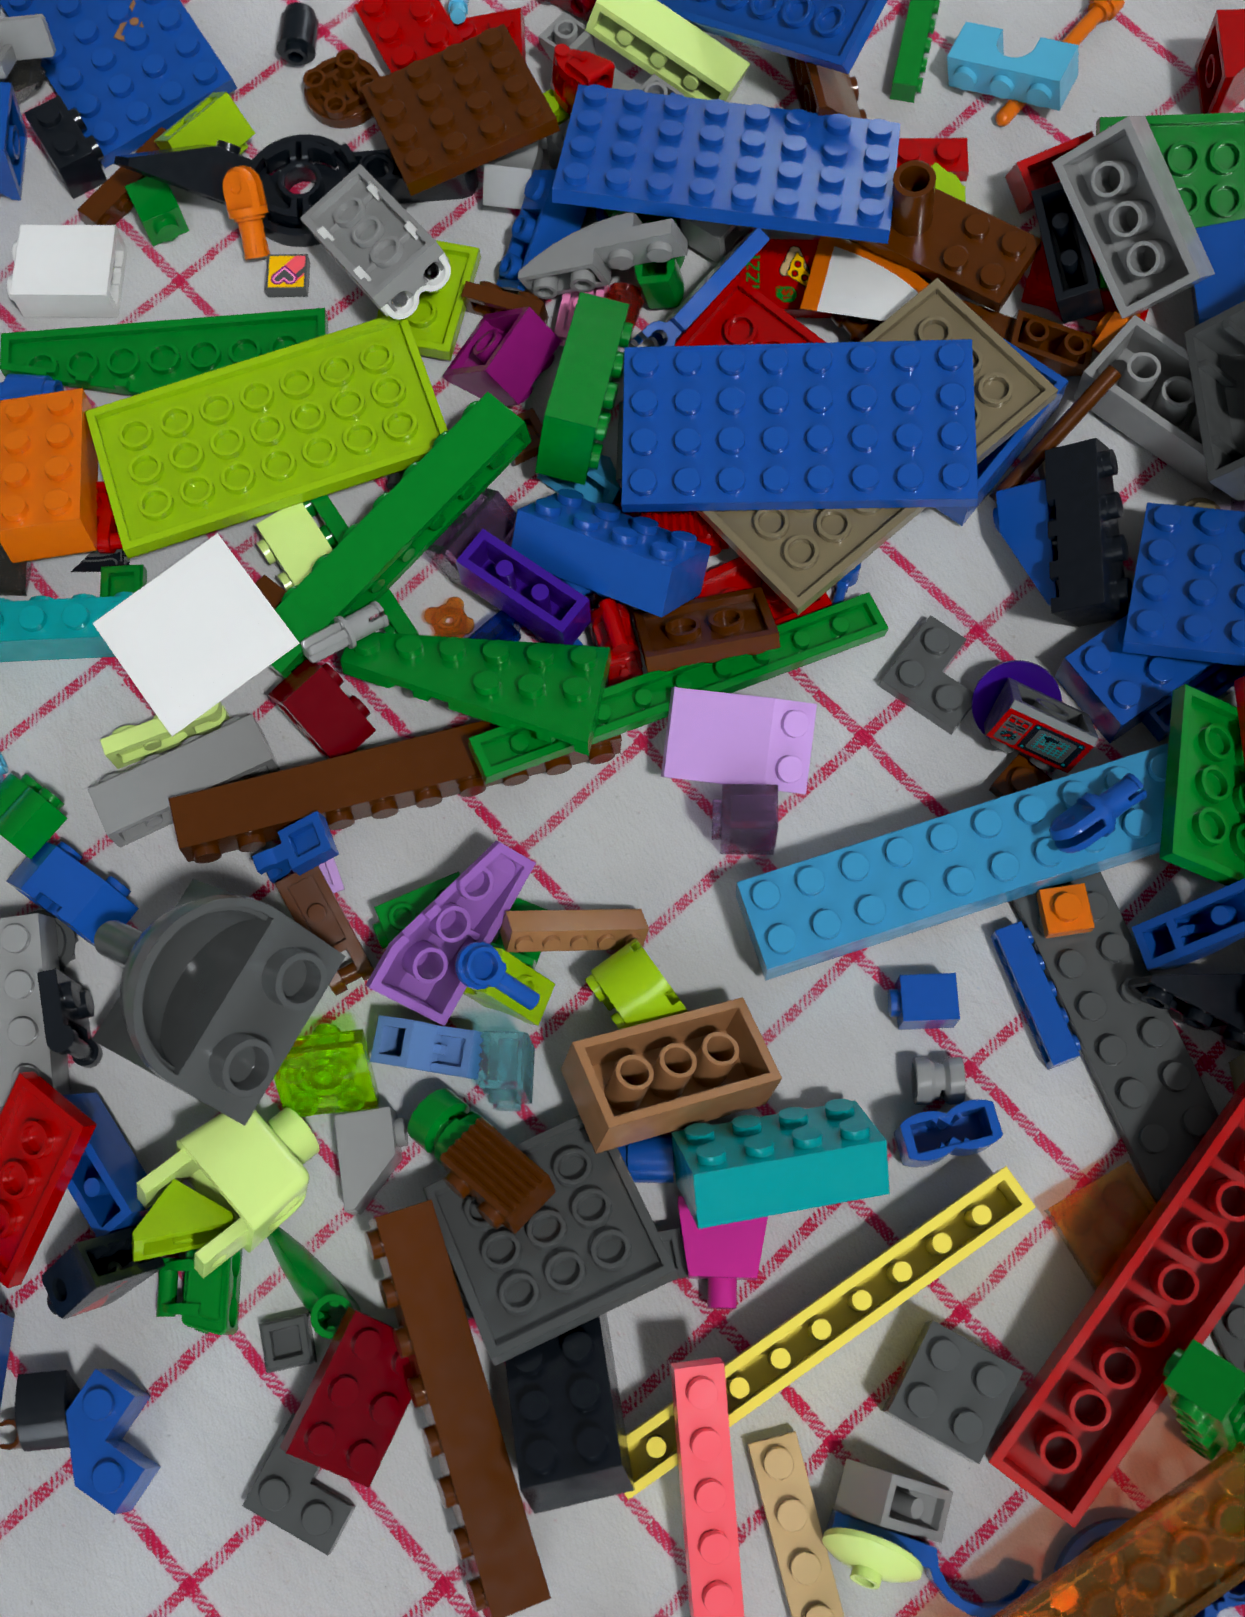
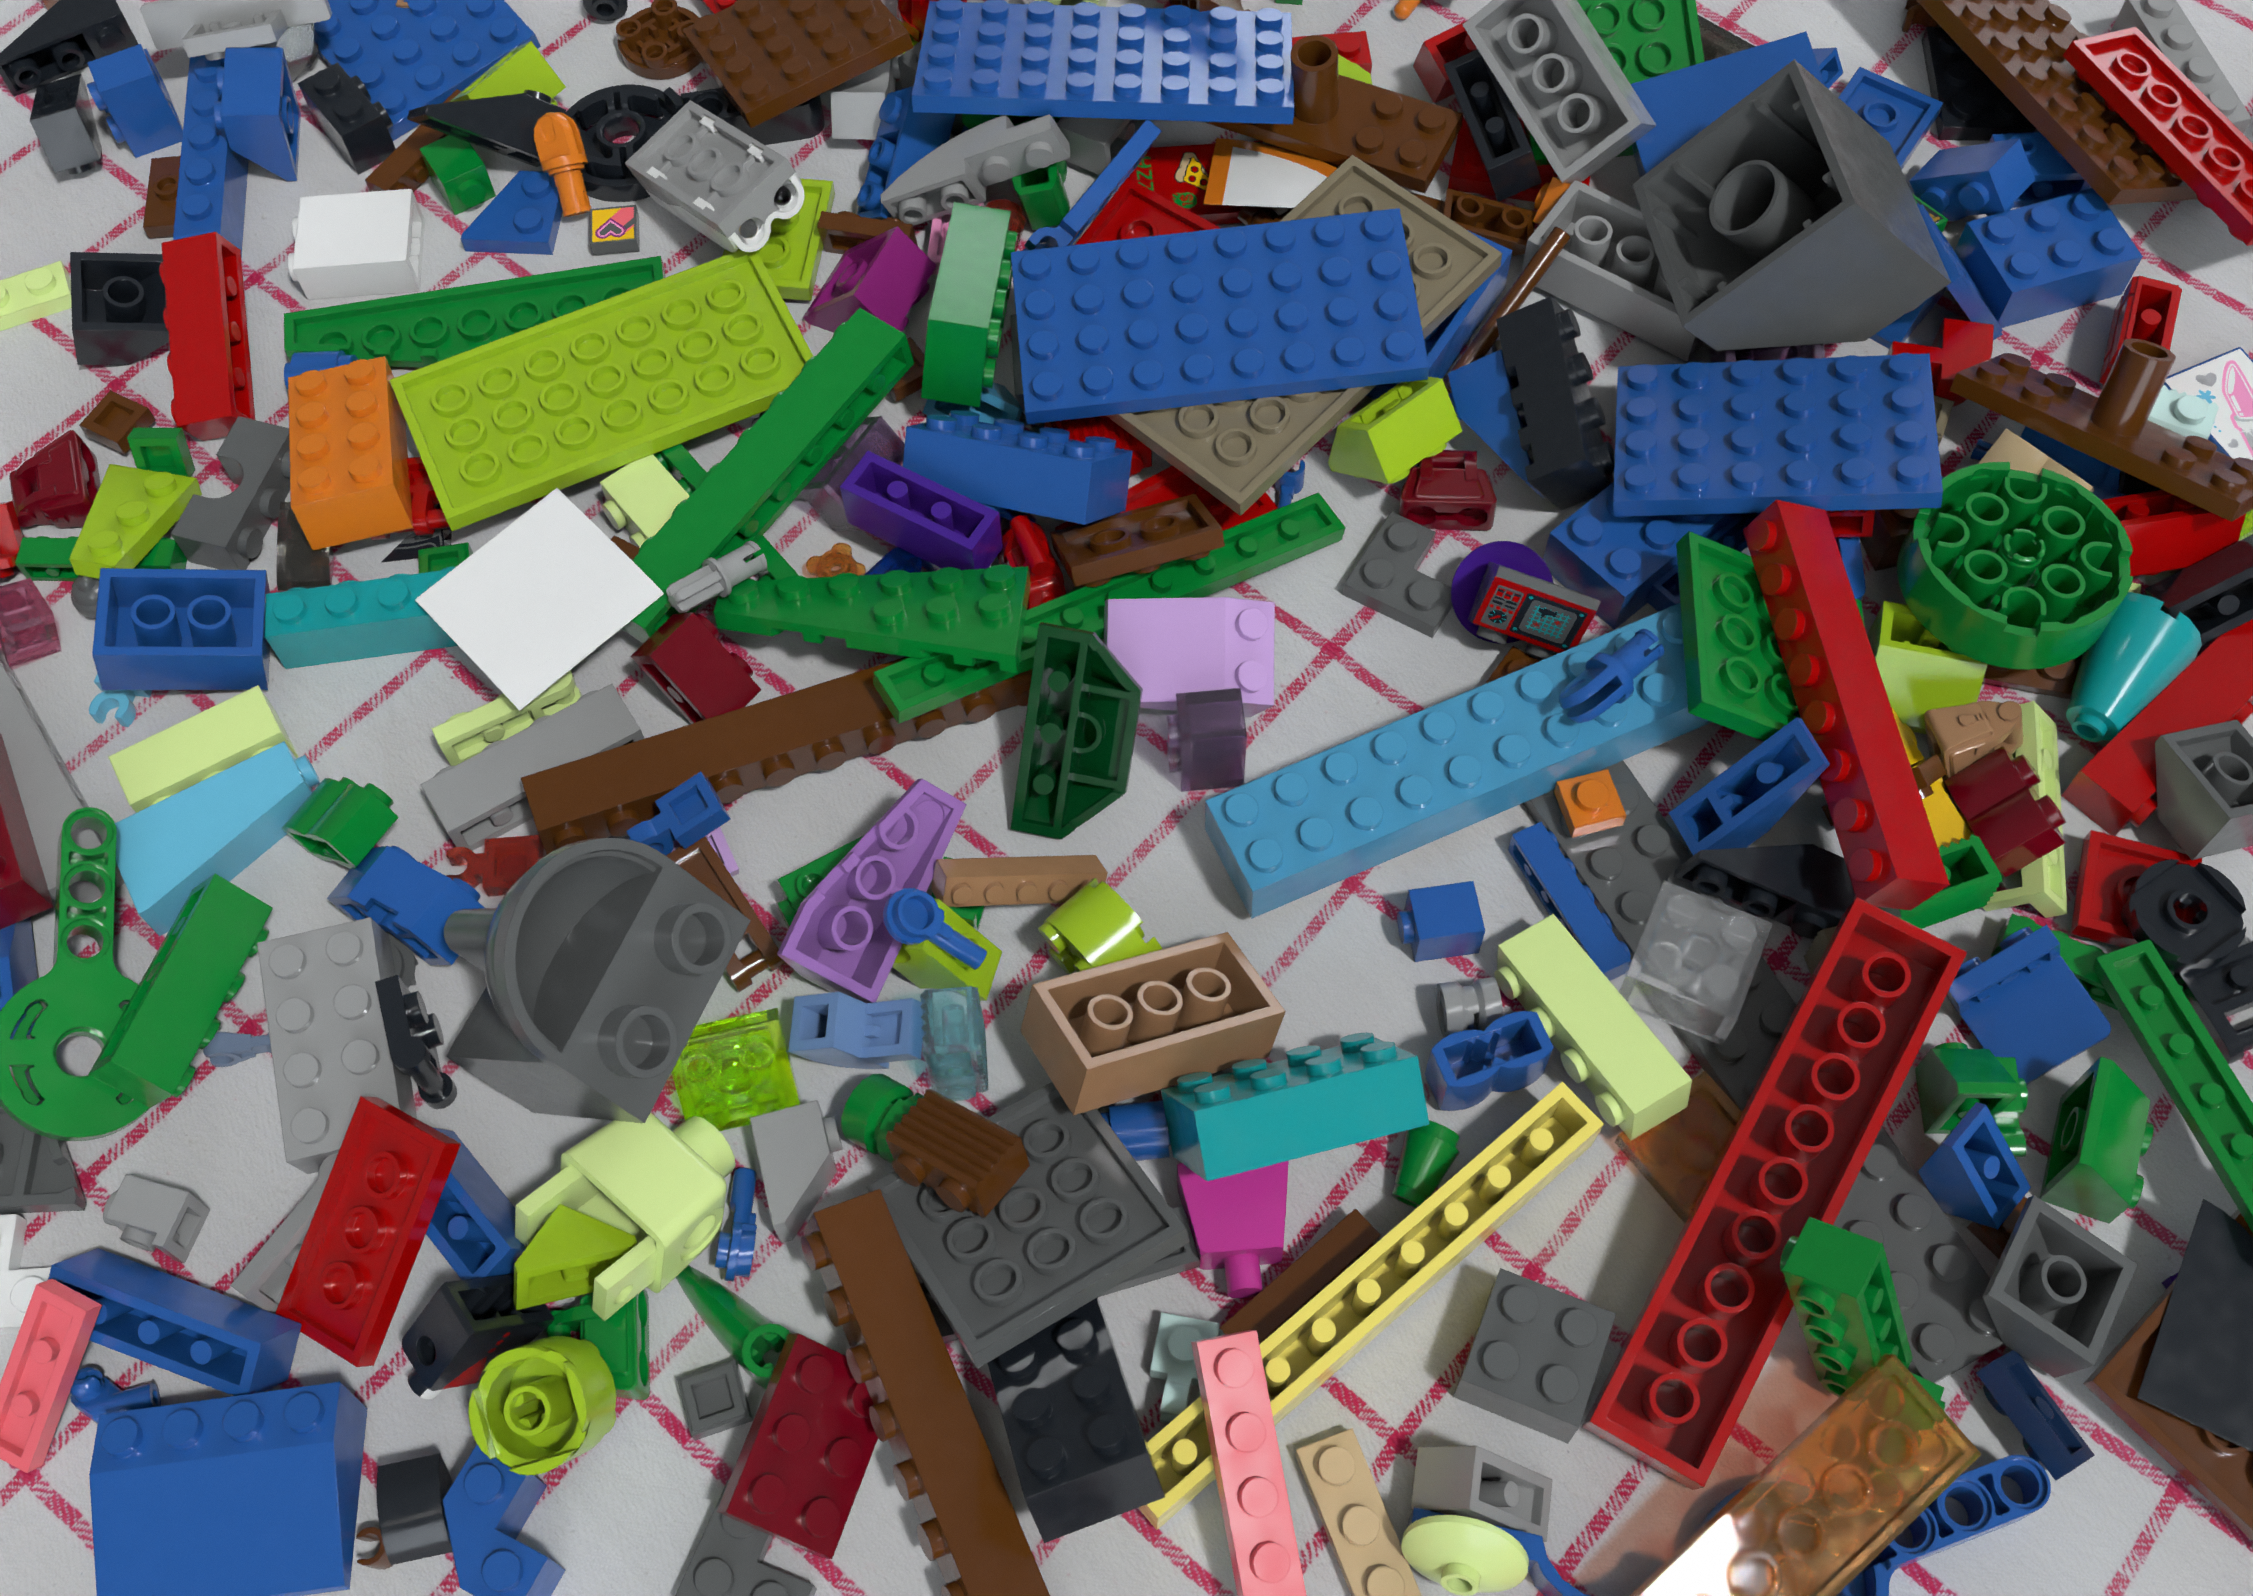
camera: 10 degrees left, 10 degrees down
(149, 1344) = (534, 1435): none -> lime brick
(153, 866) = (500, 864): none -> clear red plate
(207, 256) = (519, 219): none -> blue wing
(315, 1221) = (737, 1248): none -> blue plate
(633, 804) = (1074, 733): none -> dark green wedge
(664, 1344) = (1175, 1360): none -> light aqua plate
(769, 1306) = (1305, 1277): none -> reddish brown piece
(883, 1215) = (1424, 1162): none -> green cone
(943, 548) = (1395, 432): none -> lime slope
(982, 605) = (1449, 493): none -> dark red piece
(1038, 1114) = (1592, 1028): none -> yellowish green brick
(1133, 1070) = (1694, 962): none -> clear brick

